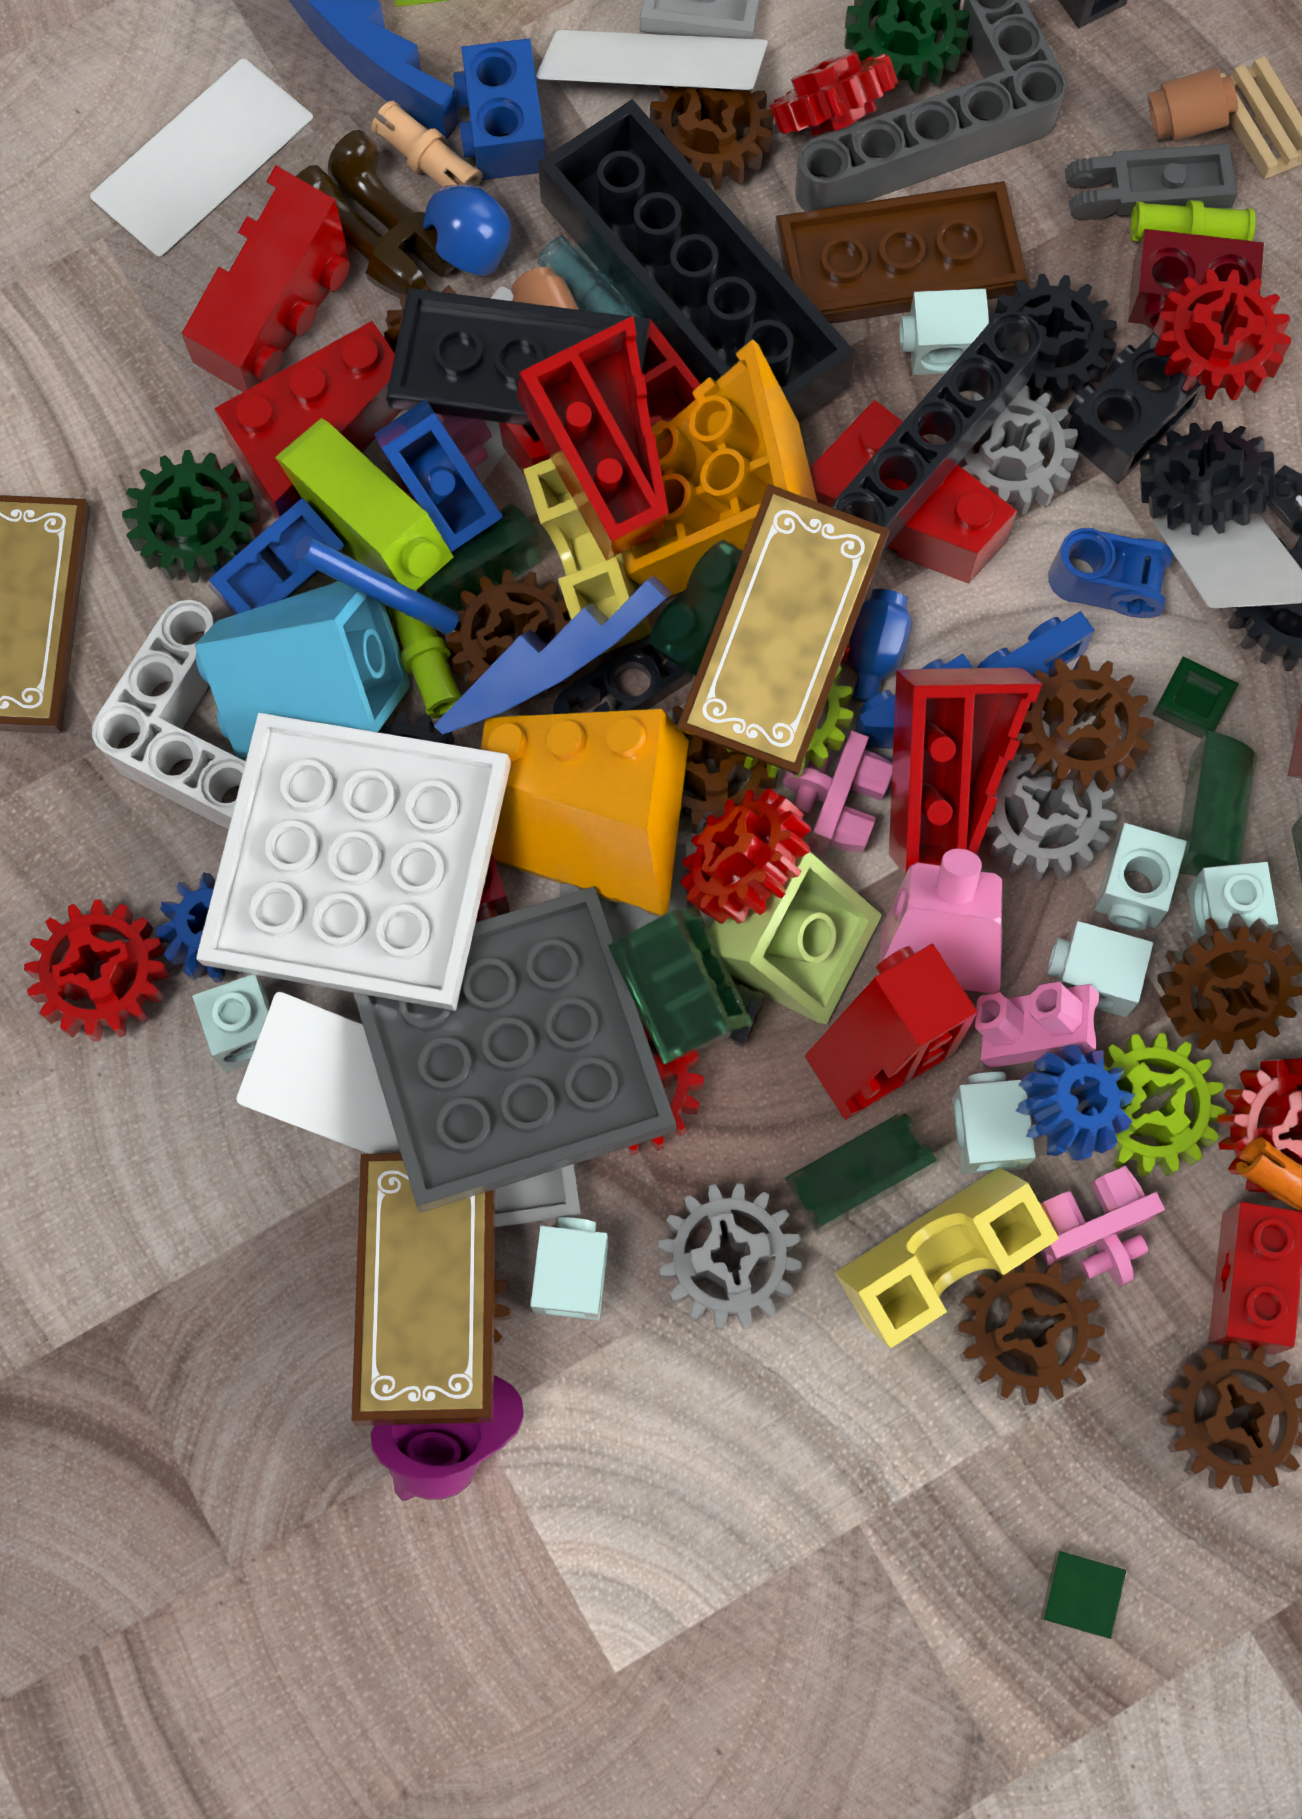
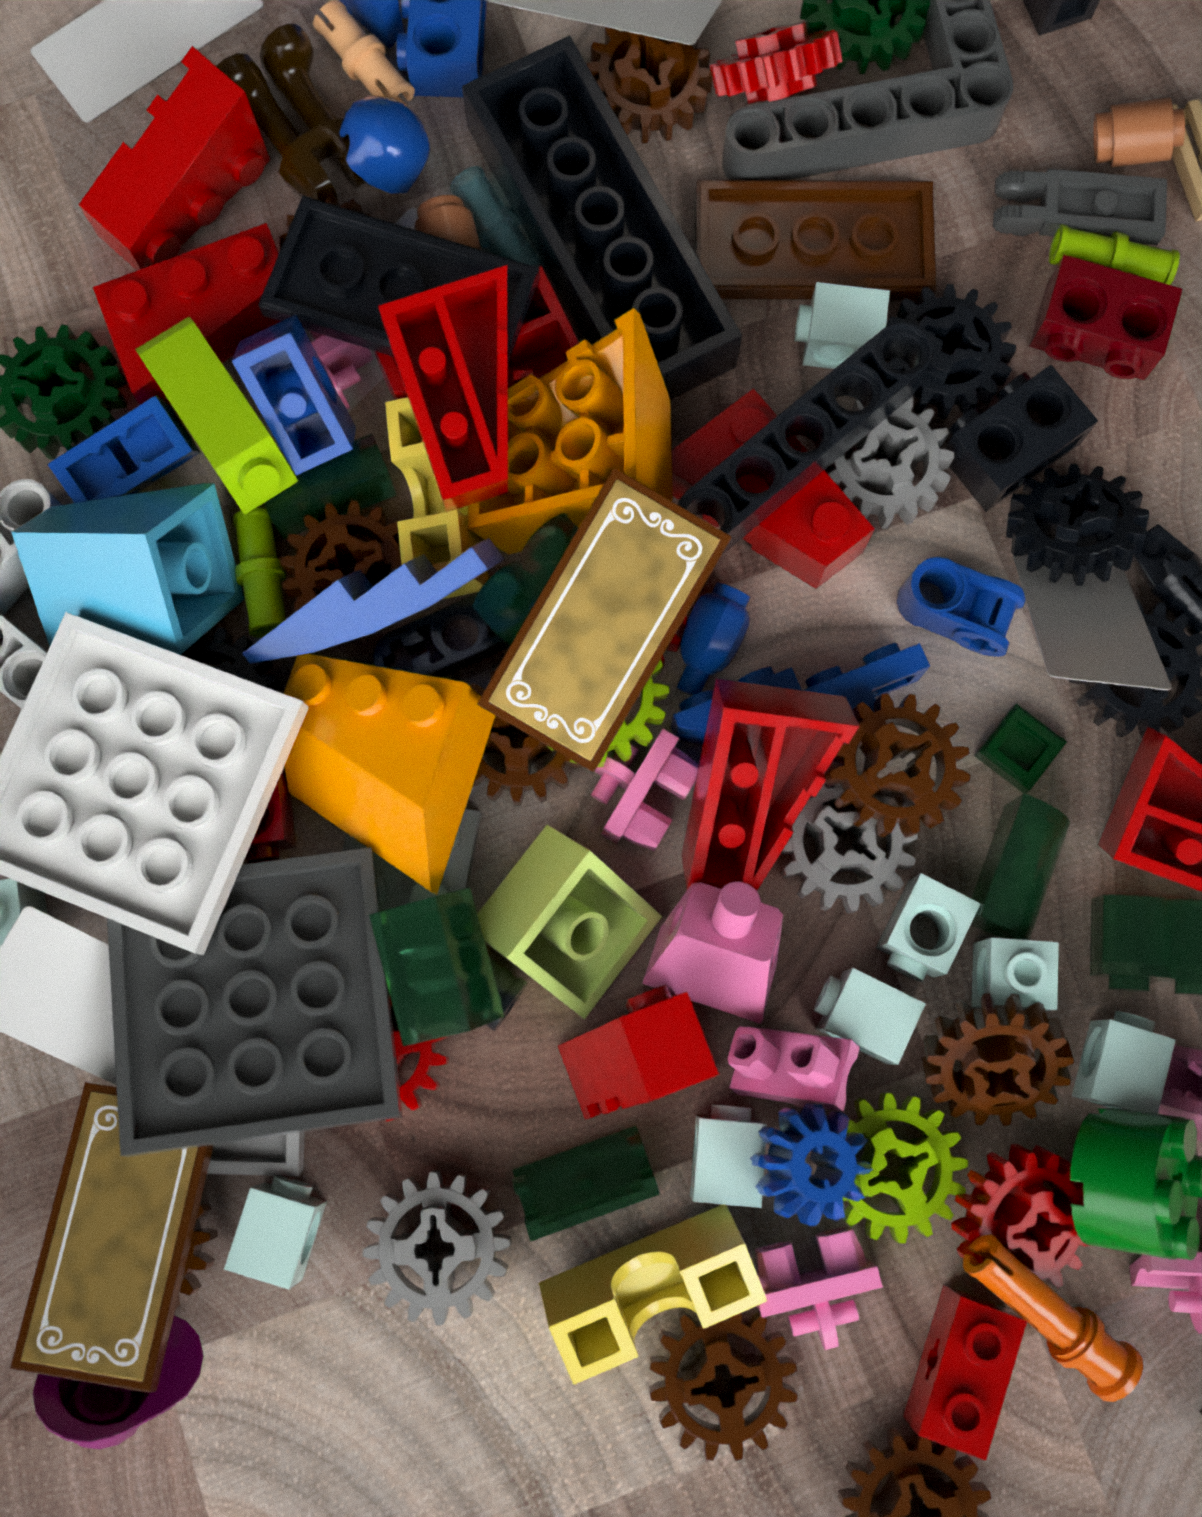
camera: 10 degrees right, 5 degrees up
(375, 585) = (204, 499): blue bar -> none
(745, 856) = (527, 845): red gear -> none
(1194, 336) = (1092, 375): red gear -> none

